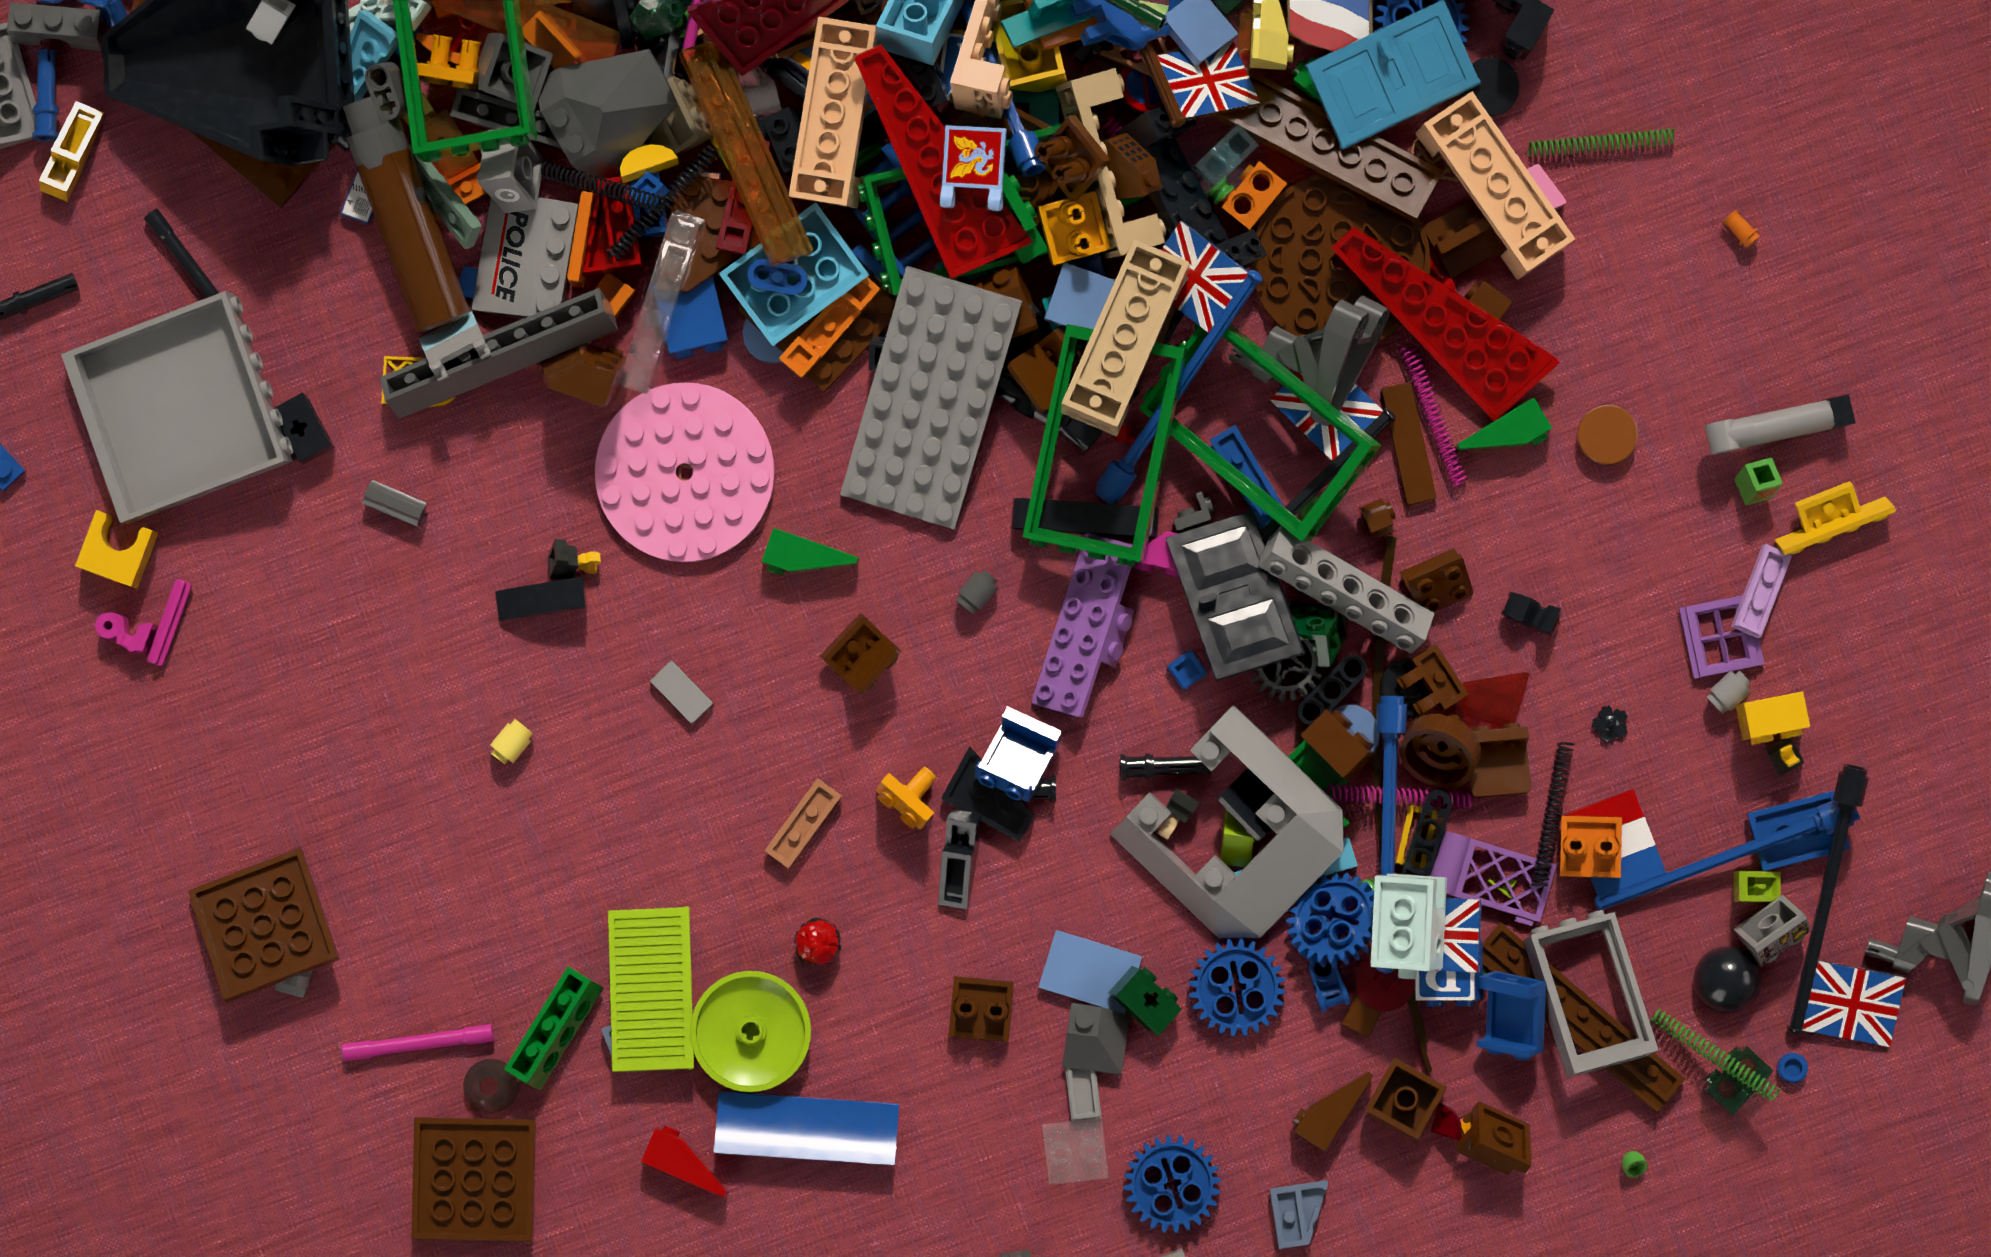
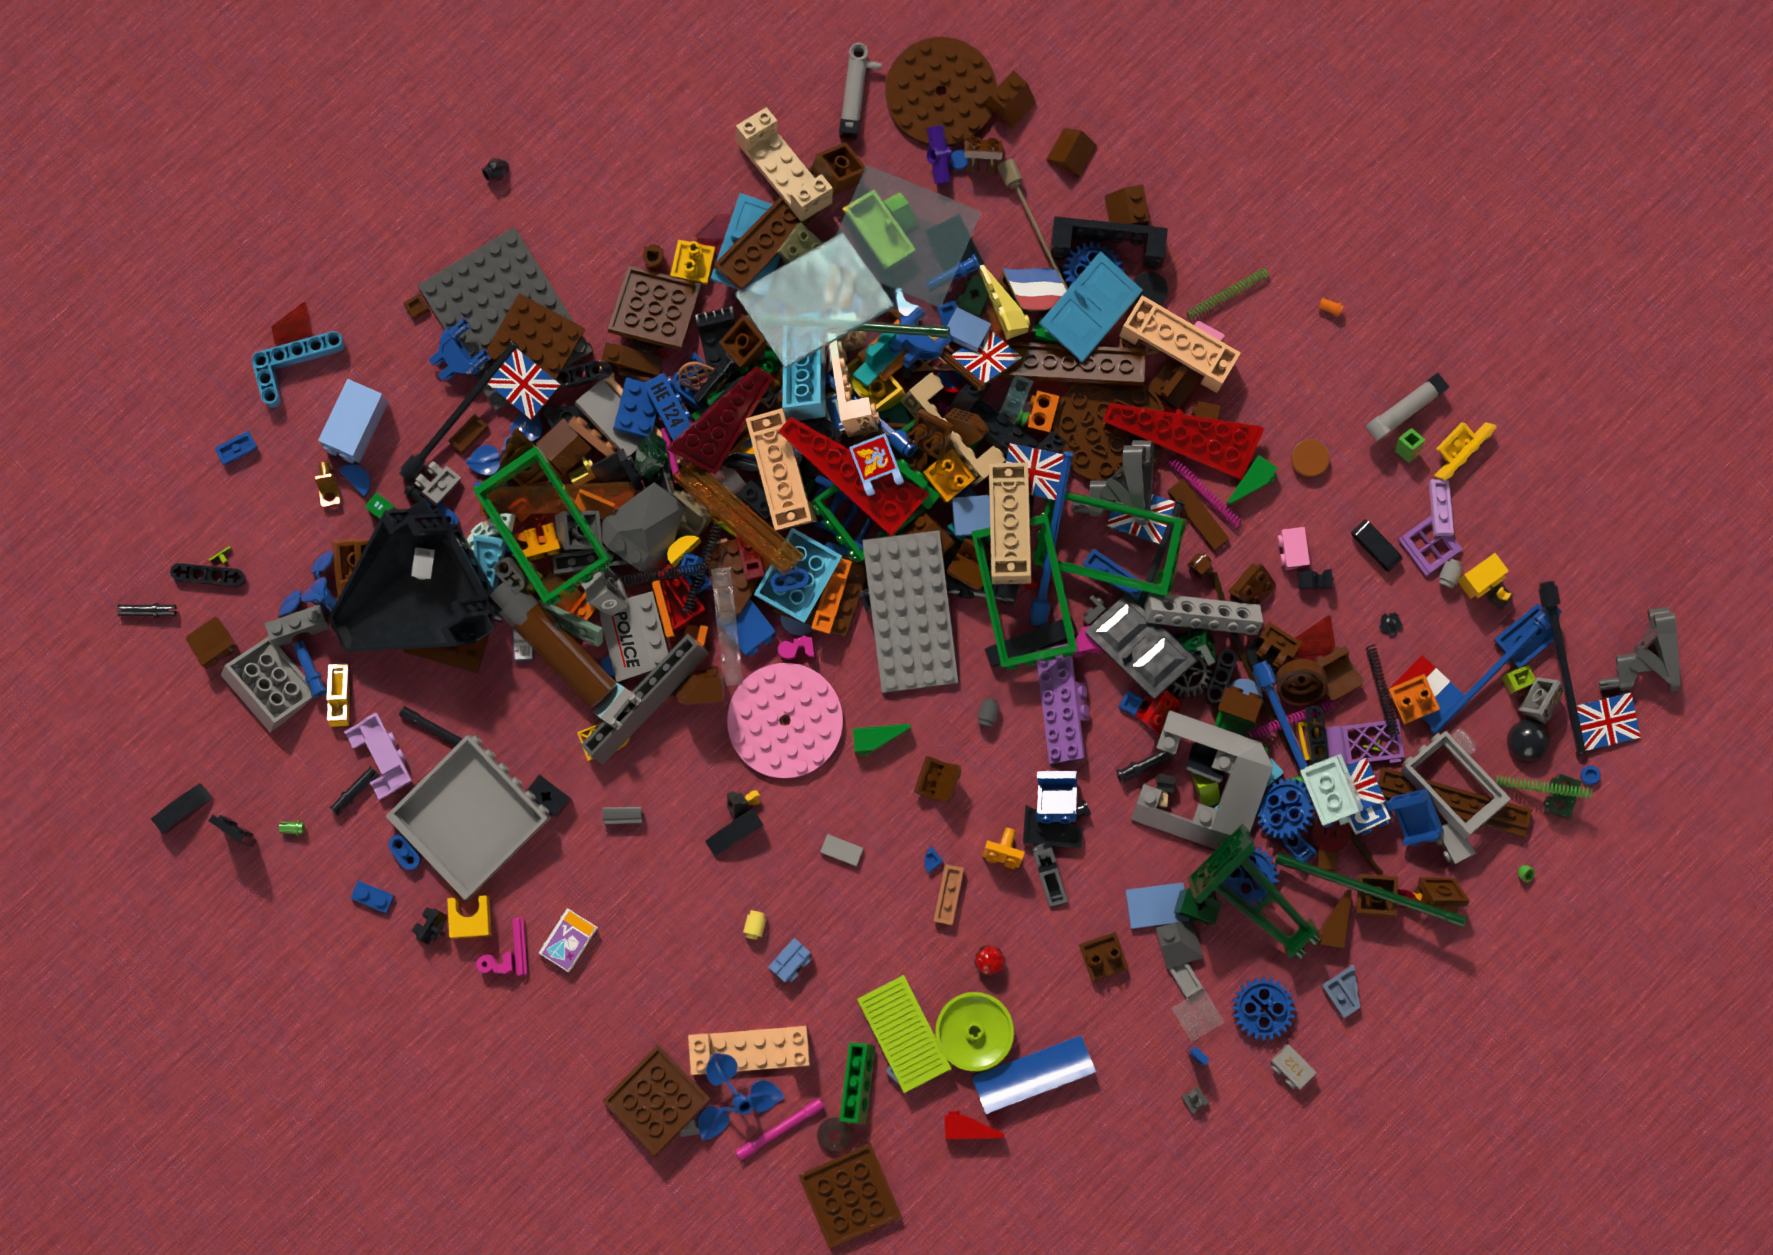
camera: 25 degrees left, 5 degrees down
(57, 540) = (432, 927): none -> black hips
(66, 417) = (404, 853): none -> blue plate
(99, 263) = (384, 752): none -> lavender bracket
(240, 644) = (568, 940): none -> piece
(413, 988) = (762, 1097): none -> blue plant
(423, 913) = (752, 1048): none -> light nougat plate
(538, 814) = (790, 961): none -> medium blue brick
(736, 376) = (789, 650): none -> dark pink leg
(802, 764) = (932, 860): none -> blue tile
(1048, 1208) = (1198, 1055): none -> blue tile
(1206, 954) = (1222, 863): none -> dark green piece
(1218, 698) = (1158, 710): none -> red plate
(1488, 1175) = (1447, 916): none -> dark green piece
(1522, 554) = (1294, 548): none -> bright pink brick
(1549, 1077) = (1454, 845): none -> light grey brick
(1635, 938) = (1464, 740): none -> clear brick
(1643, 603) = (1376, 545): none -> black beam

